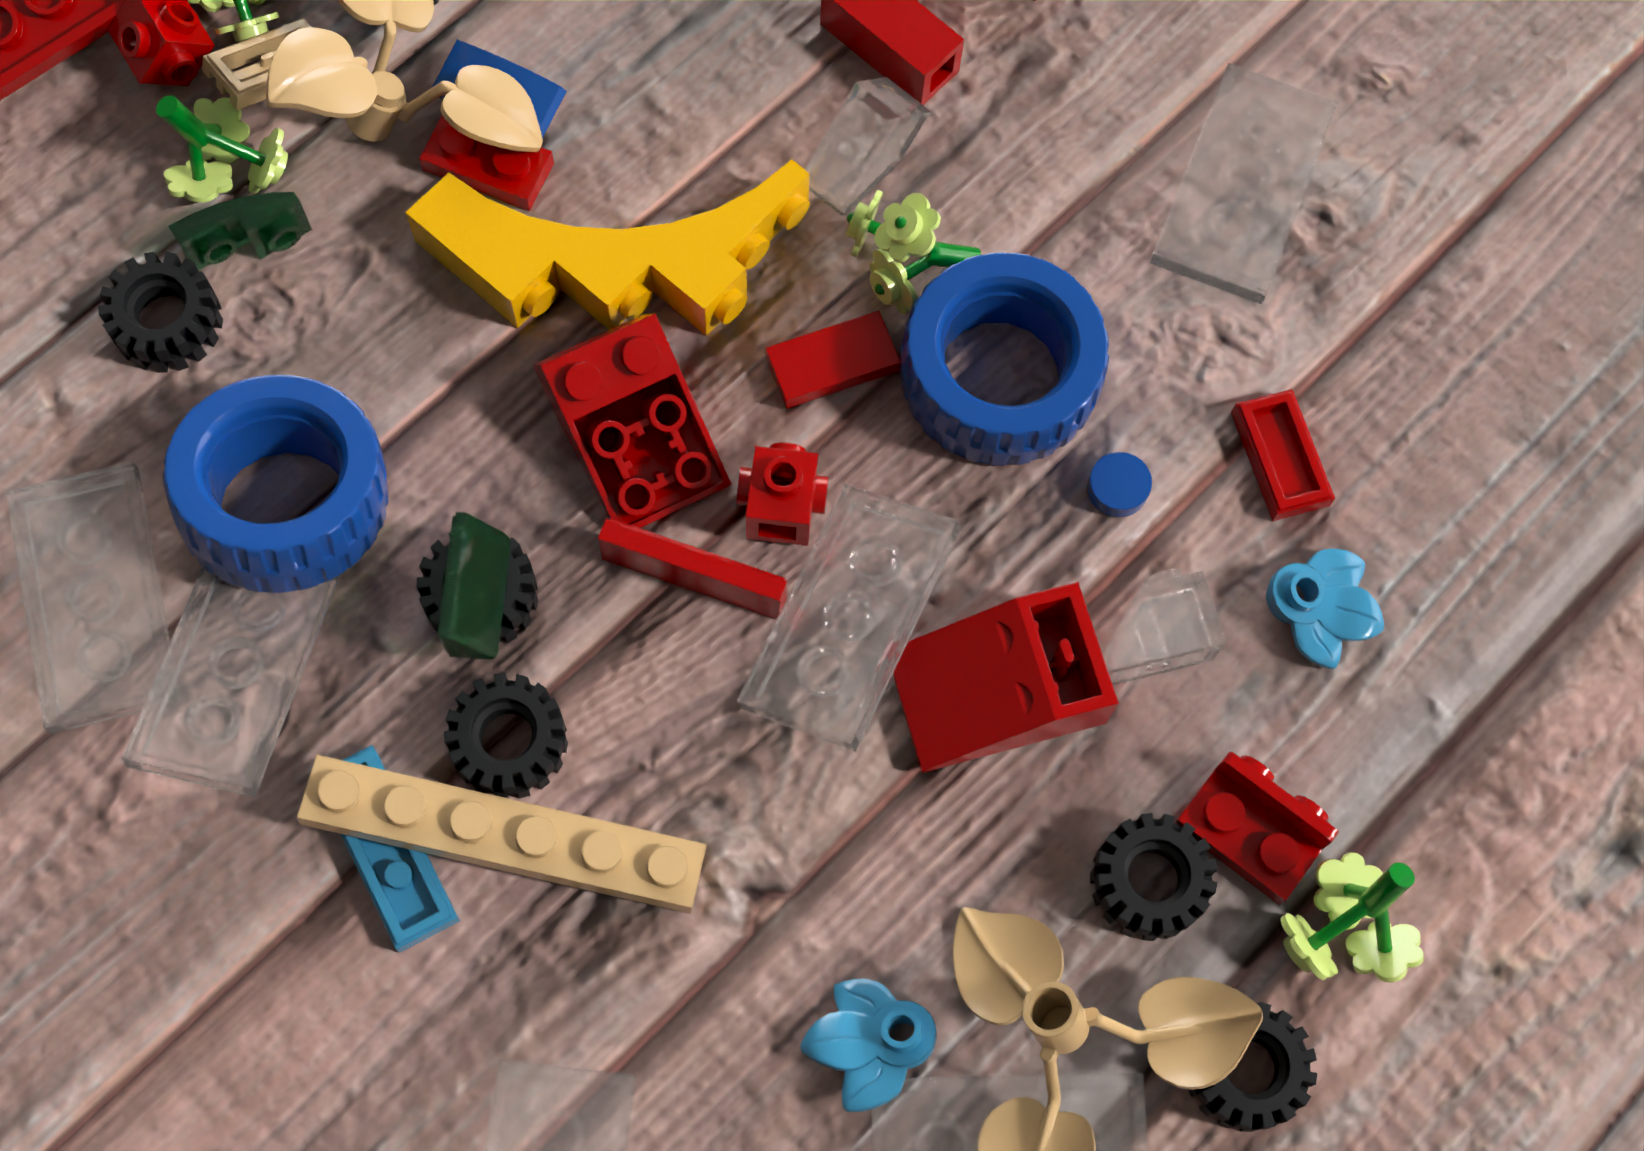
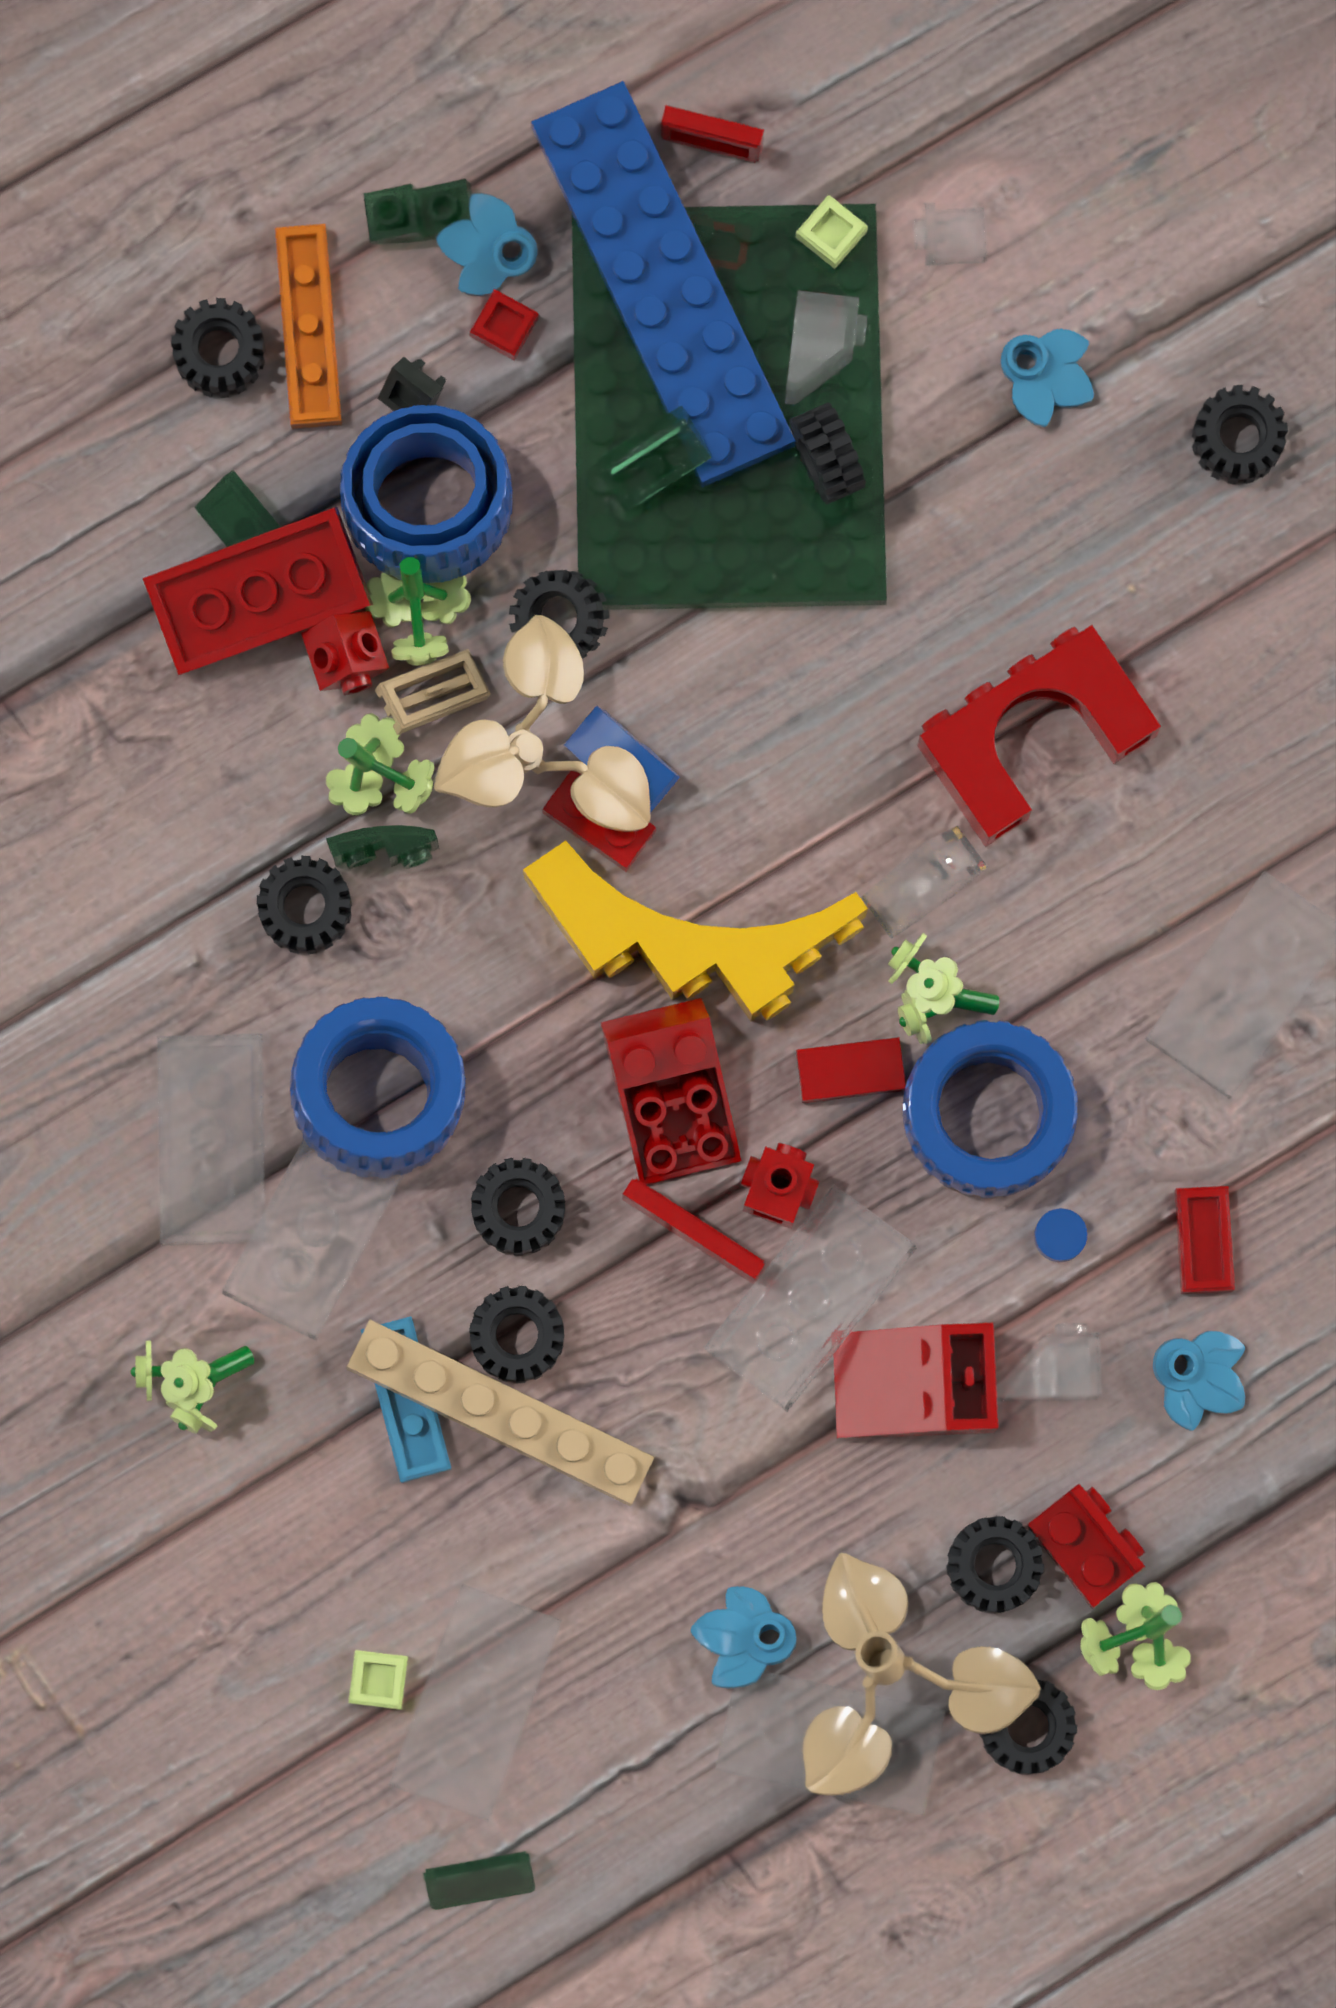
camera: 15 degrees right, 10 degrees up
(89, 878) = (189, 1382): none -> yellowish green plant
(474, 589) = (517, 1216): clear green slope -> none

